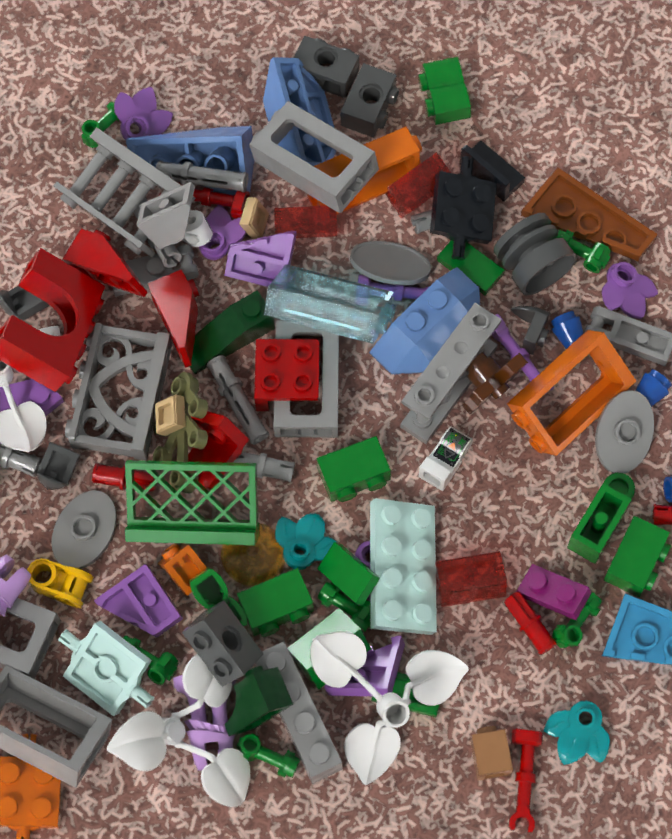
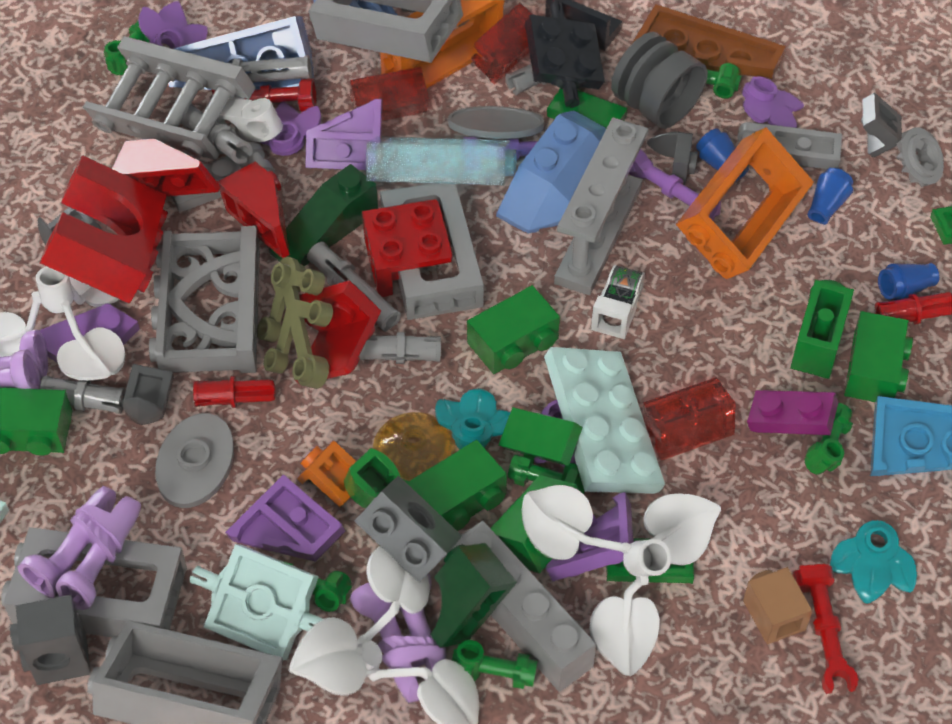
camera: 15 degrees left, 15 degrees down
(65, 584) = (179, 518): yellow piece -> none
(166, 216) = (230, 97): light grey slope -> none
(170, 415) = (277, 305): tan tile -> none
(197, 529) = (331, 425): green fence -> none
(254, 218) = (326, 101): tan tile -> none
(490, 378) = (648, 205): reddish brown plant -> none
(530, 623) = (775, 453): red axle -> none
(624, 432) = (817, 235): light grey piece -> none

